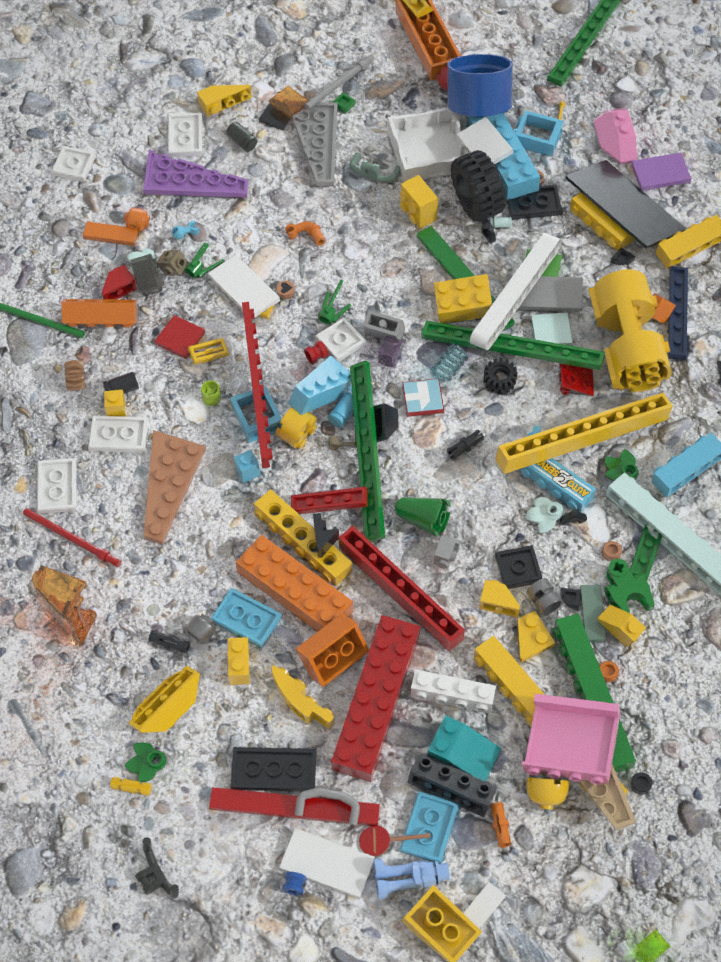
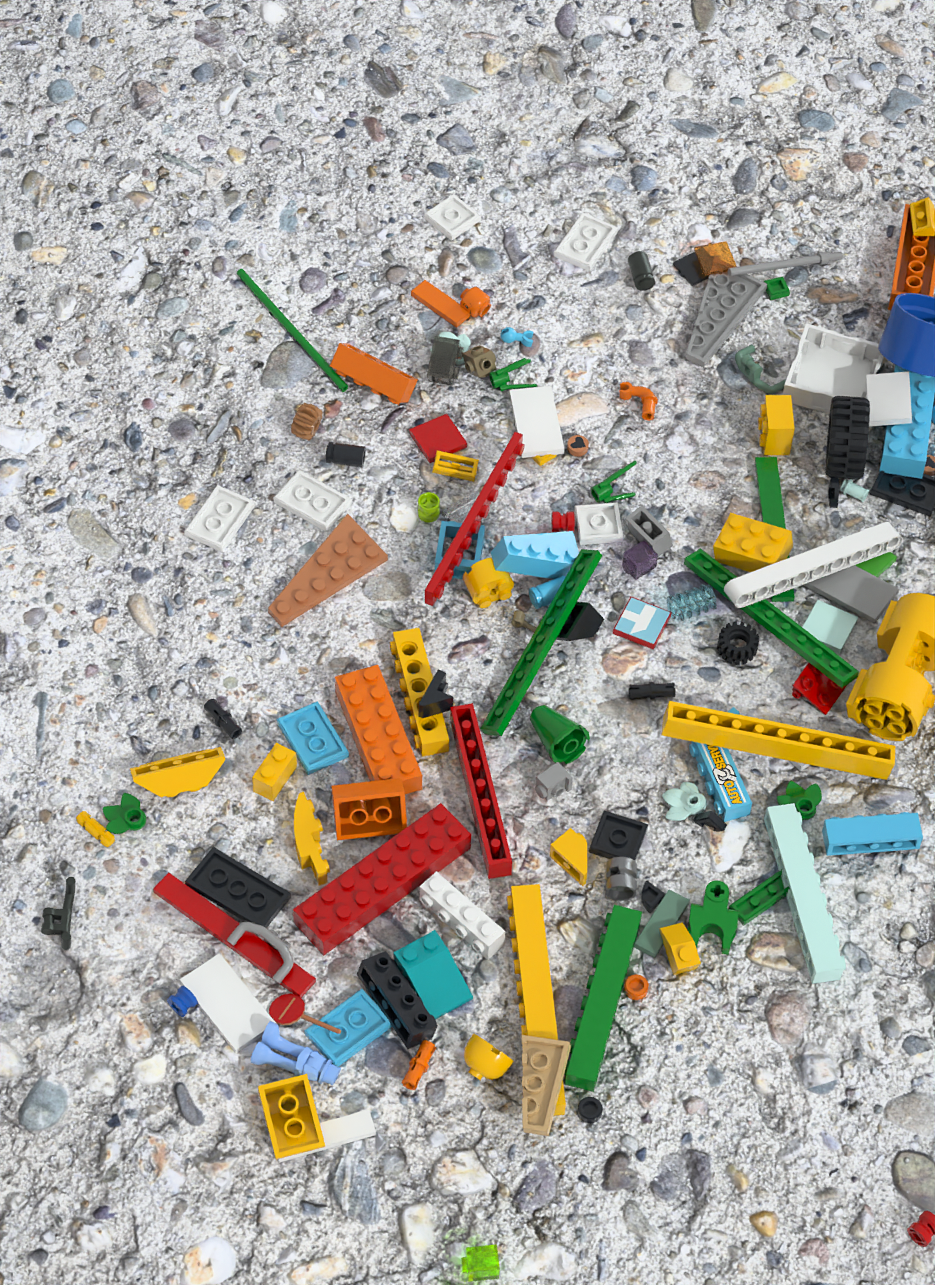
camera: 30 degrees right, 5 degrees down
(62, 601) = (140, 615): clear orange windscreen -> none
(101, 554) = (216, 603): red bar -> none
(115, 403) = (327, 468): yellow brick -> none
(118, 283) = (411, 356): red slope -> none
(186, 178) = (557, 287): medium lavender wing -> none
(201, 629) = (260, 722): flat silver head -> none
(220, 97) = (649, 221): yellow slope -> none
(247, 466) = (413, 595): medium azure brick -> none
(329, 500) = (471, 670): red tile -> none
(532, 636) = (582, 911): yellow wing -> none
(572, 739) = (541, 1020): bright pink panel -> none
(611, 550) = (728, 874): nougat tile -> none

